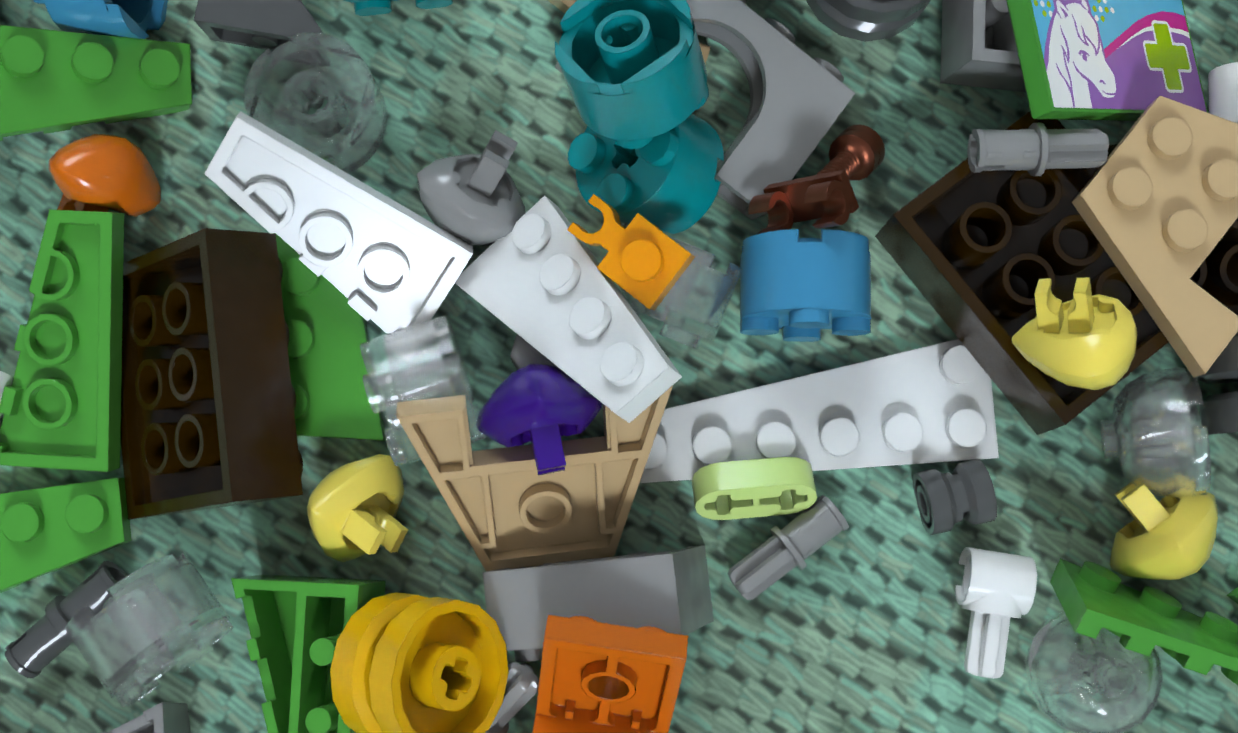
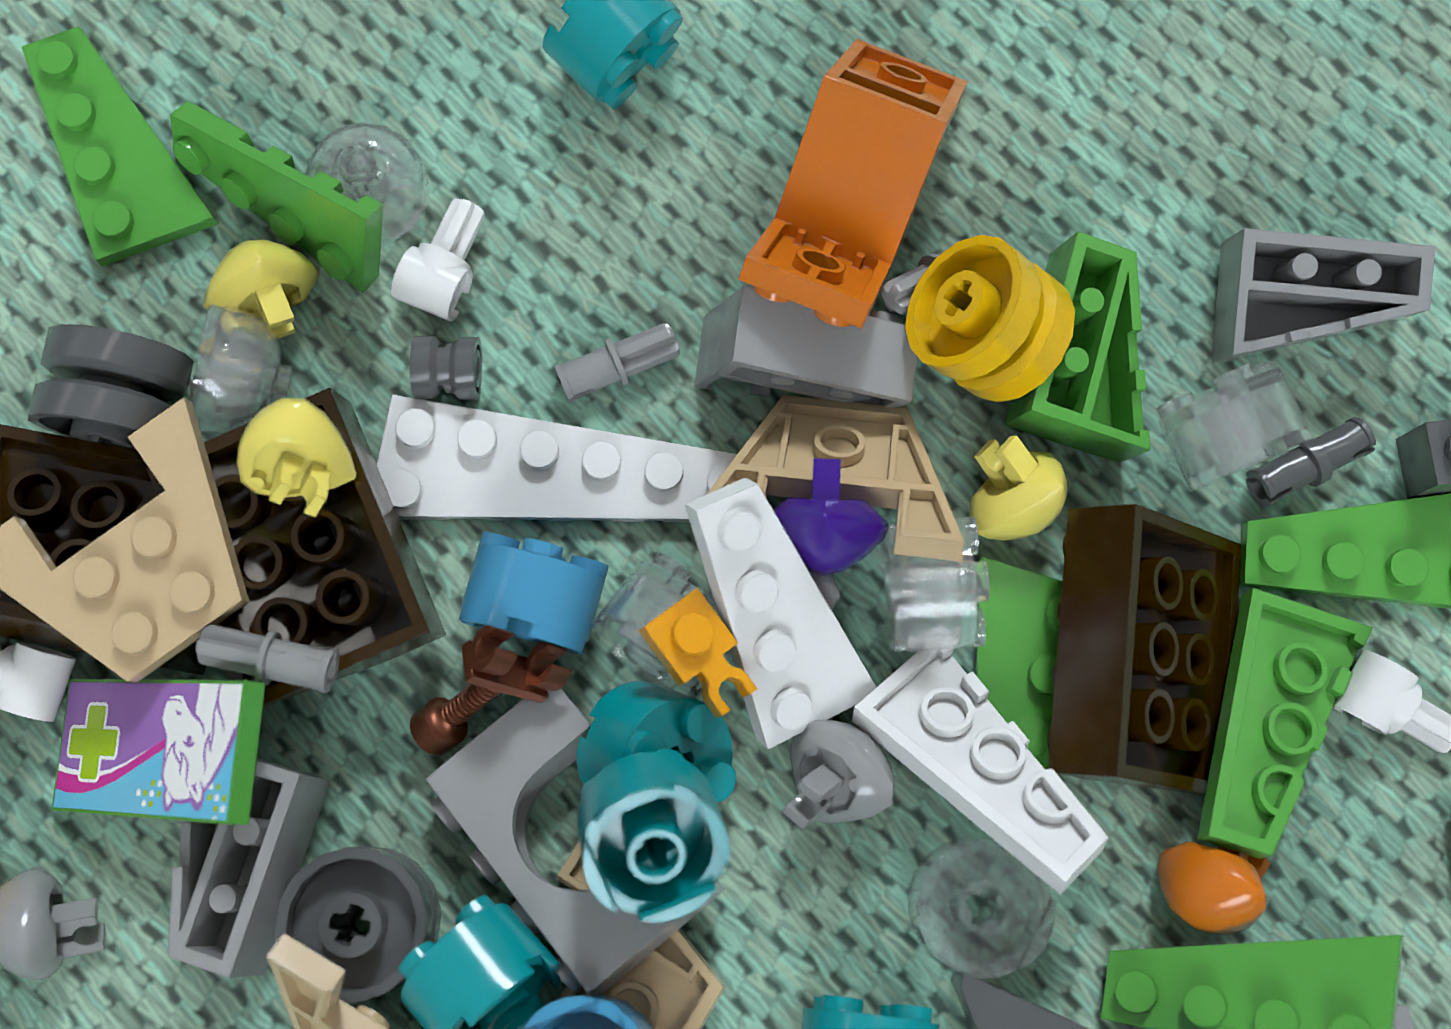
camera: 165 degrees left, 5 degrees down
(754, 488) = (634, 421): yellowish green beam -> none

